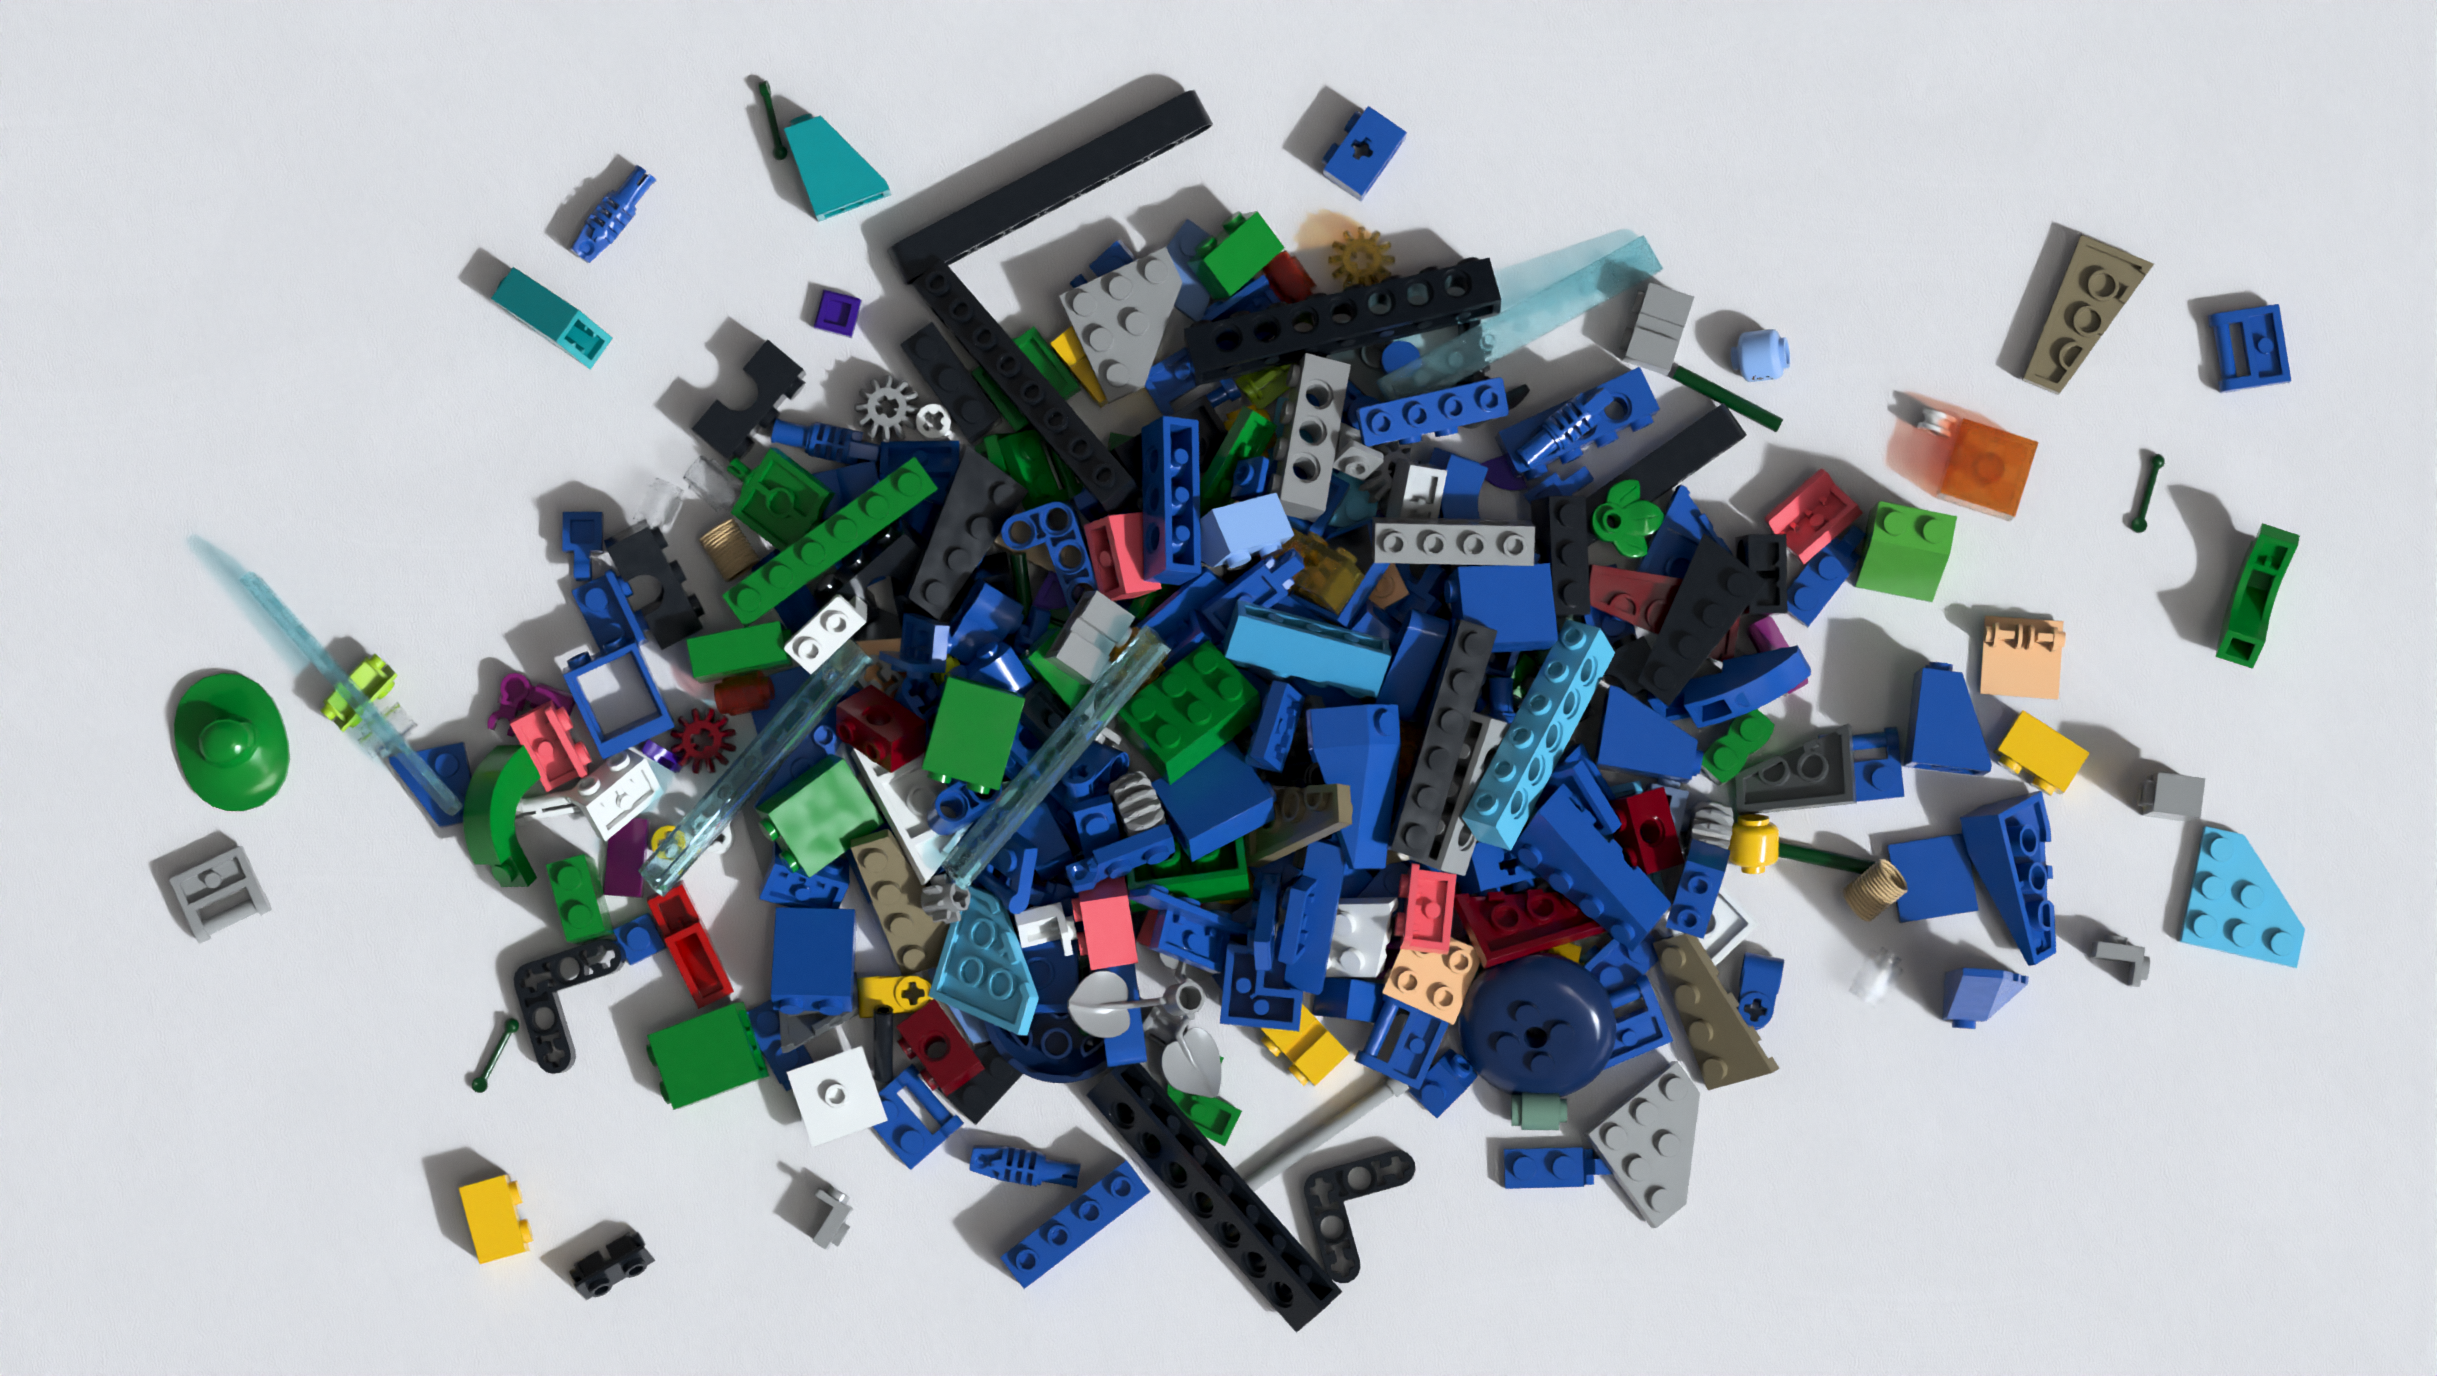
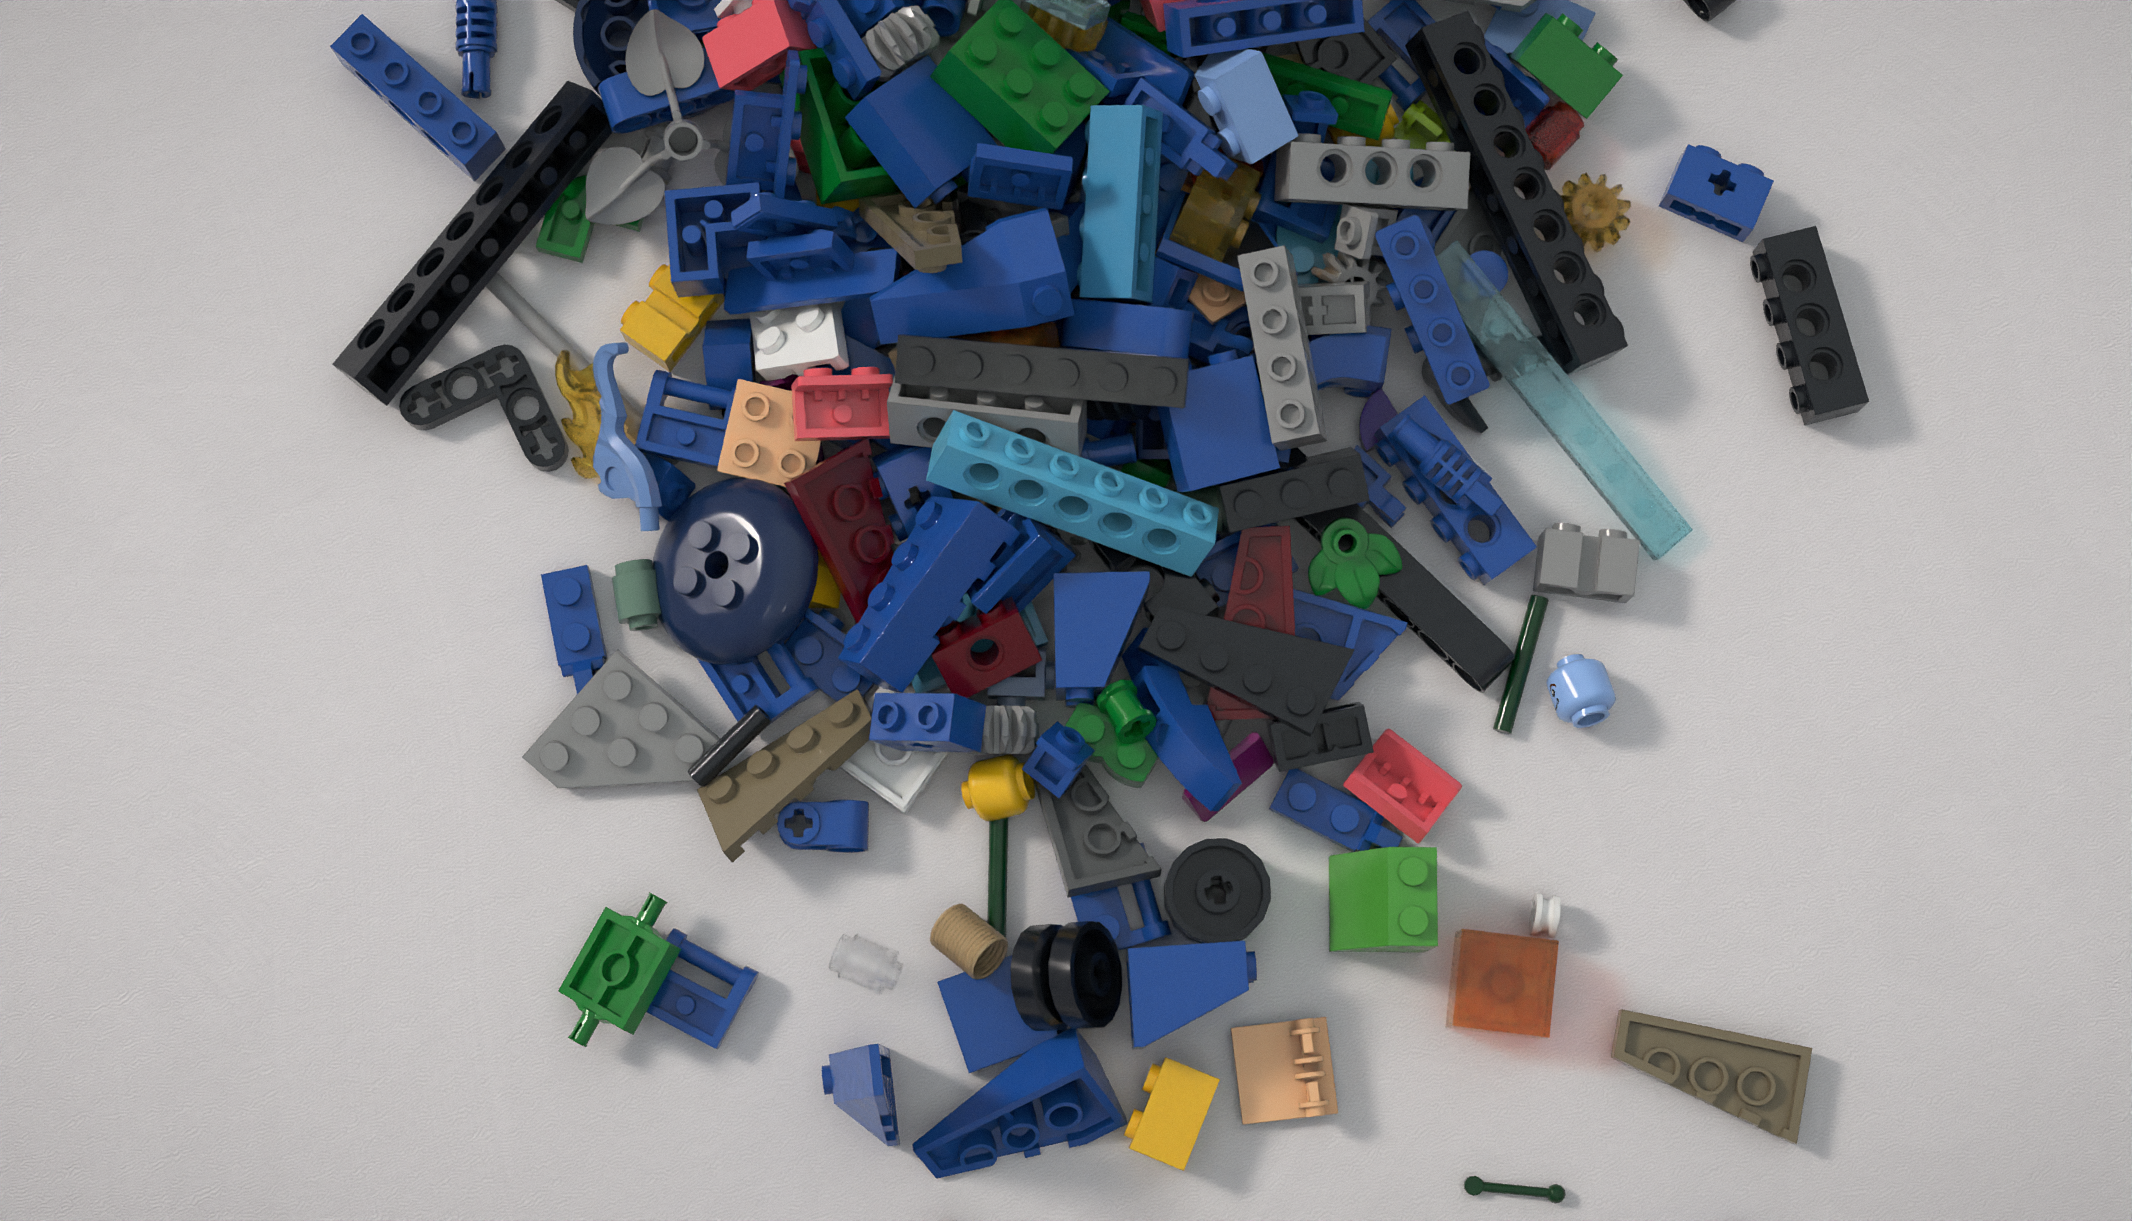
camera: 75 degrees right, 5 degrees down
(1397, 1117) = (601, 435): none -> medium blue piece
(1551, 88) = (1803, 257): none -> black brick
(1680, 1055) = (729, 745): none -> black piece
(1718, 726) = (1126, 711): none -> green bush
(1744, 789) = (1058, 758): none -> blue bracket
(1846, 1176) = (619, 970): none -> green plate
(1881, 1127) = (694, 1006): none -> blue plate
(1895, 679) = (1224, 865): none -> black wheel
(1920, 815) = (1066, 976): none -> black wheel

